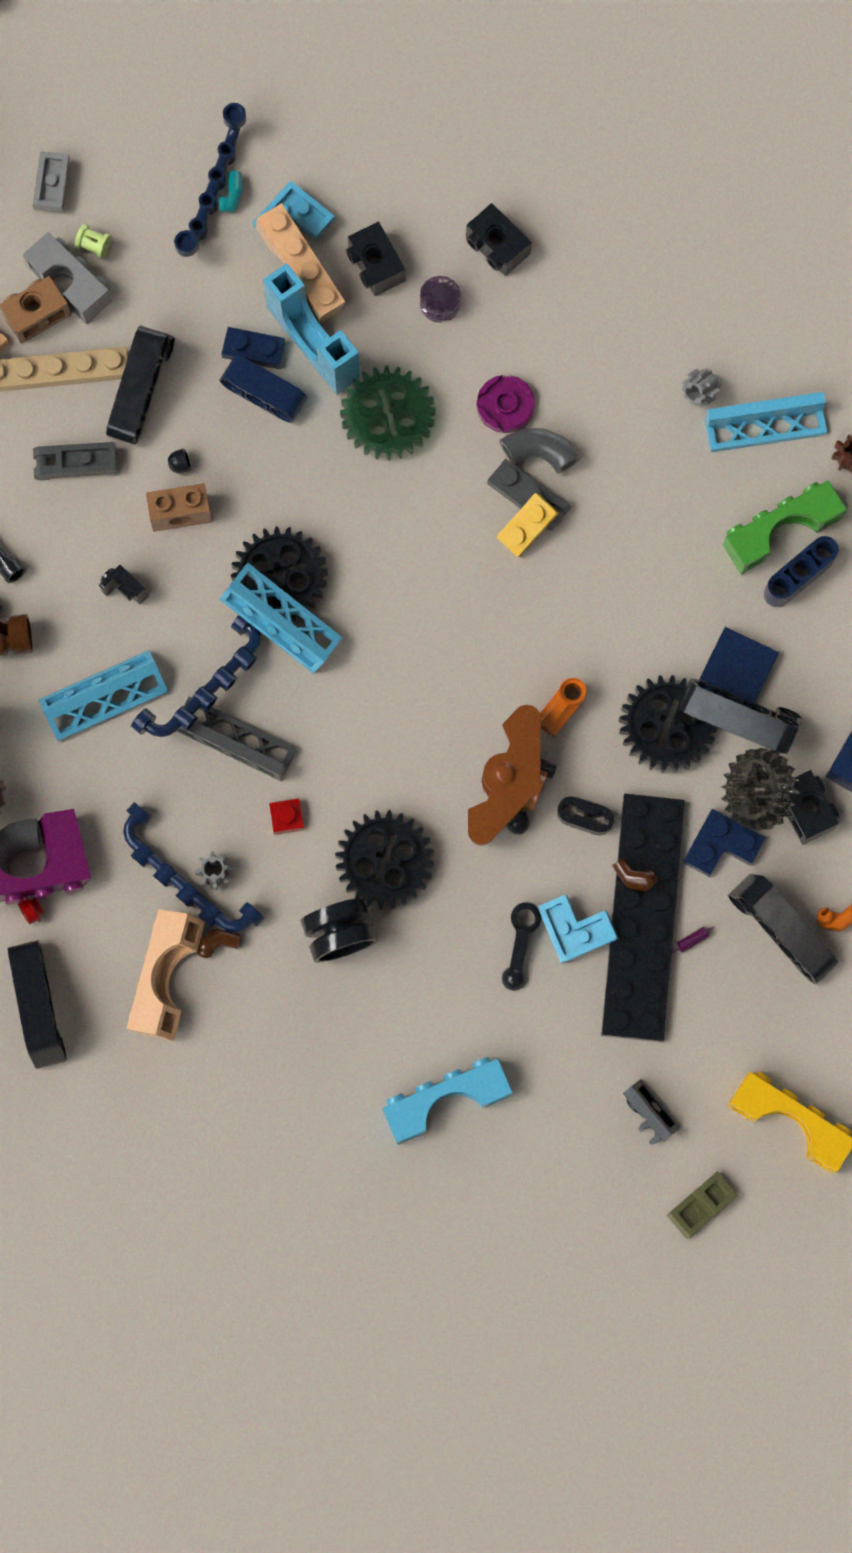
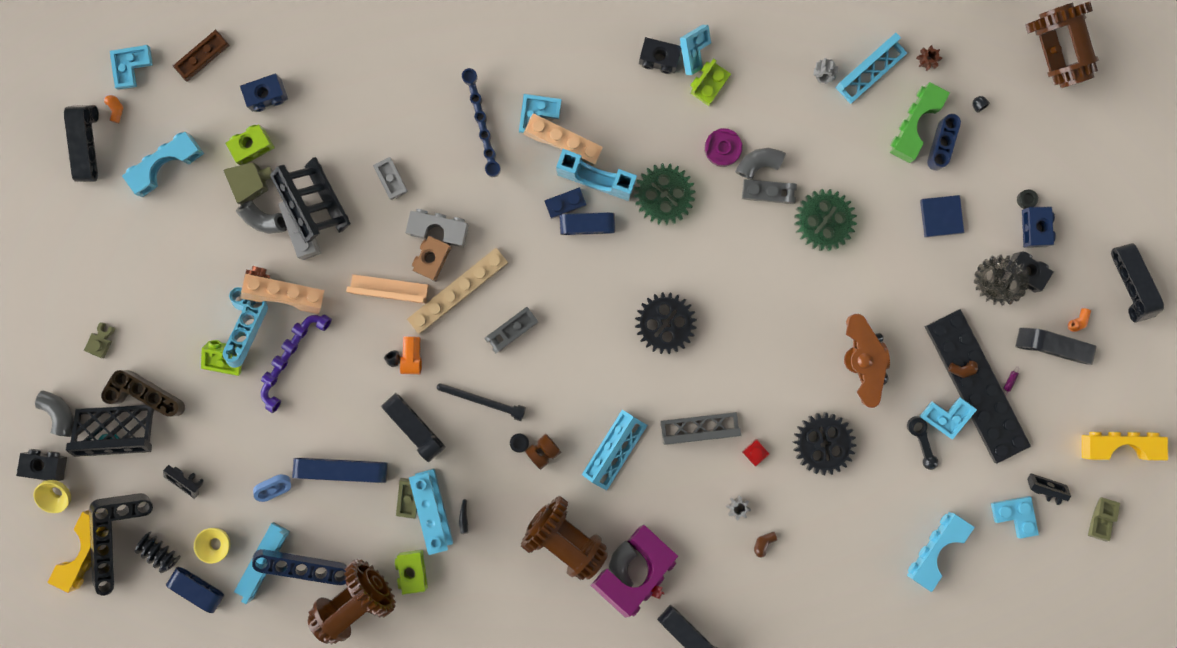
camera: 30 degrees left, 10 degrees up
(93, 241) = (444, 199): yellowish green bush -> none
(129, 586) = (589, 382): black bracket -> none
(138, 383) = (518, 265): black beam -> none
(171, 940) = (758, 604): light nougat arch -> none
(178, 507) = (587, 320): medium nougat brick -> none
(179, 461) = (568, 294): black hinge -> none
(187, 893) = (731, 528): dark blue bar -> none
(204, 696) = (673, 419): dark blue bar -> none
(235, 191) = (496, 119): teal arm -> none
(274, 625) = (684, 355): medium azure fence -> none
(339, 930) = (829, 500): black wheel -> none
(374, 243) = (593, 100): black brick -> none
(439, 299) = (650, 110): clear purple wheel -> none
(527, 525) = (781, 210): yellow plate -> none
(541, 311) = (710, 82): none -> lime bracket
(542, 250) = (691, 46): none -> medium azure plate
(560, 708) = (863, 301): orange piece -> none
(567, 550) = (838, 231): none -> clear green gear
(586, 808) = (913, 355): black beam -> none
(594, 1123) = (1020, 511): none -> medium azure plate
(642, 715) = (943, 270): black gear -> none
(720, 835) = (988, 318): dark blue plate -> none
(740, 716) = (987, 243): black beam -> none

